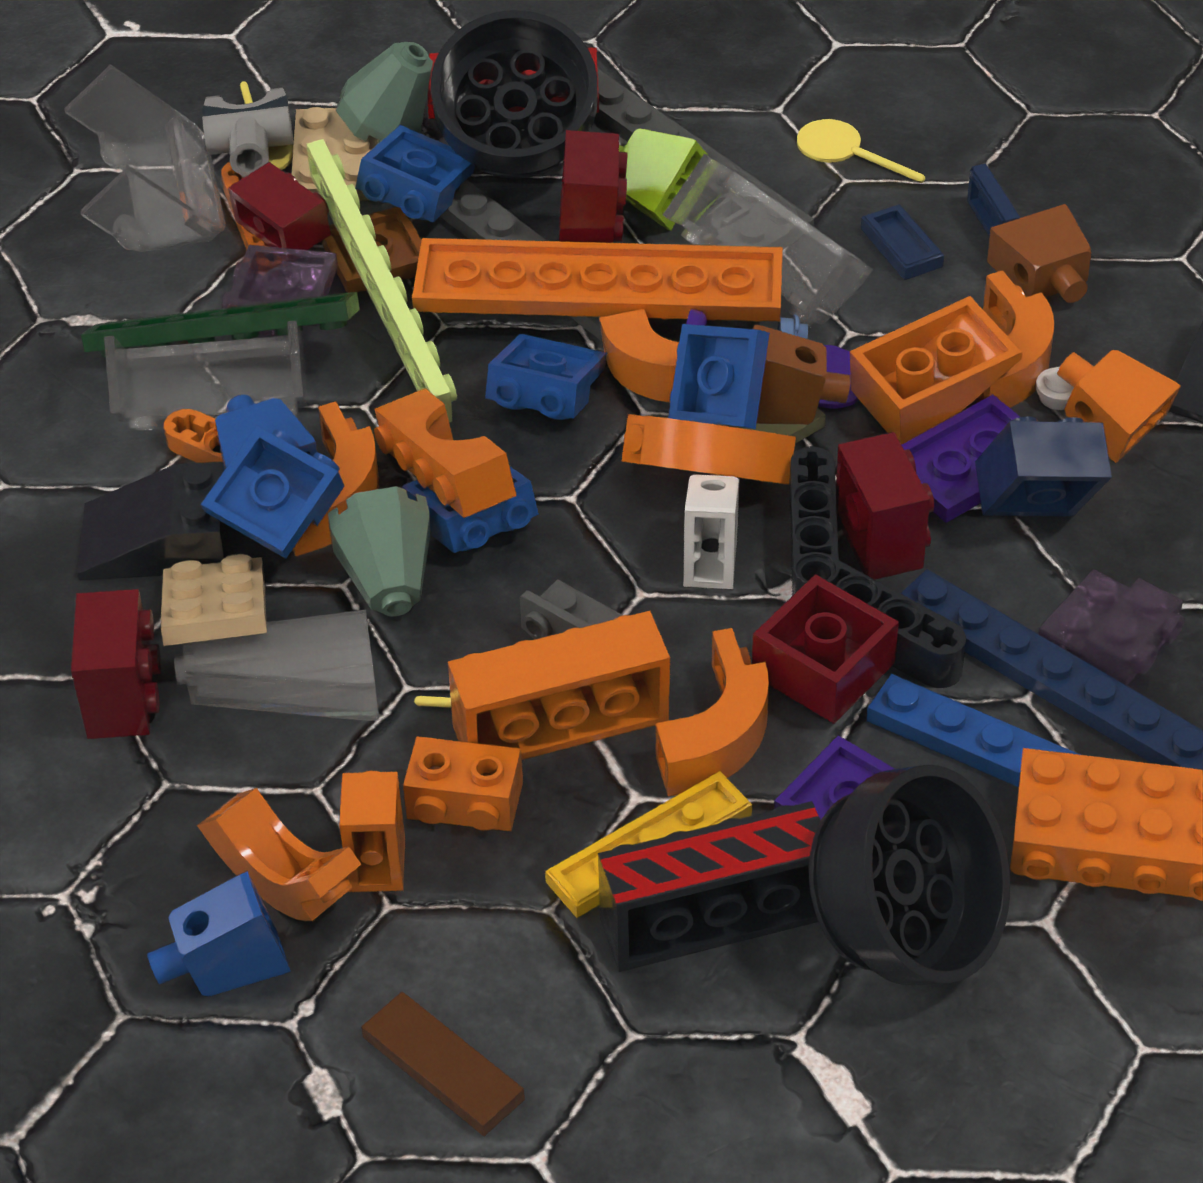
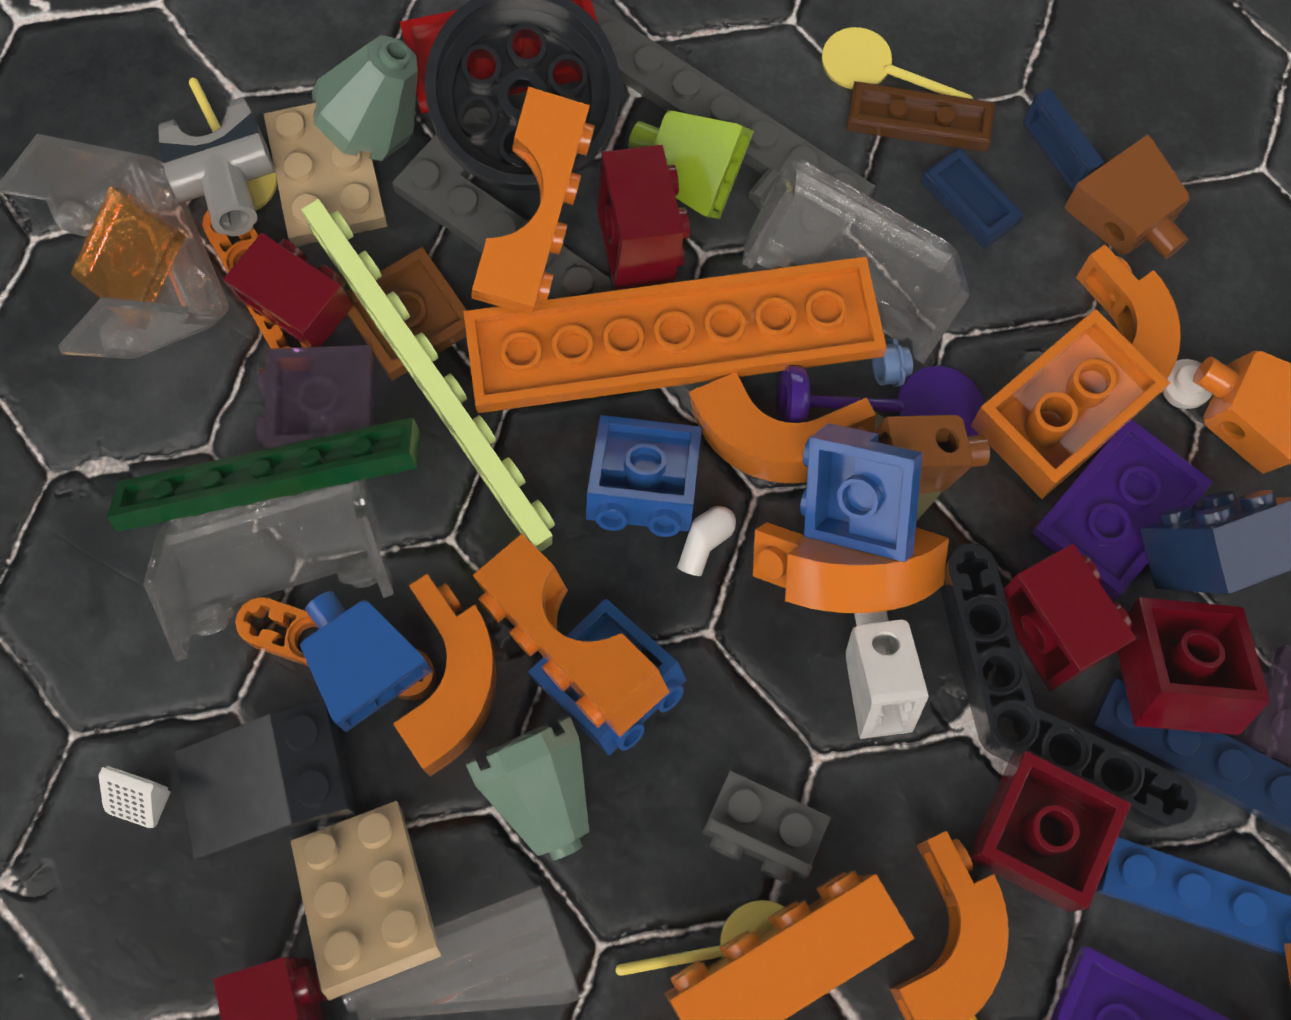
camera: 15 degrees left, 25 degrees up
(41, 519) = (132, 797): none -> white slope
(164, 161) = (127, 250): none -> clear orange tile
(274, 490) = (398, 754): blue plate -> none
(413, 174) = (427, 210): blue plate -> none
(473, 198) = (547, 139): none -> orange arch
(586, 421) = (704, 535): none -> white arm
(872, 182) = (921, 116): none -> reddish brown tile
(986, 552) = (1192, 667): none -> dark red brick

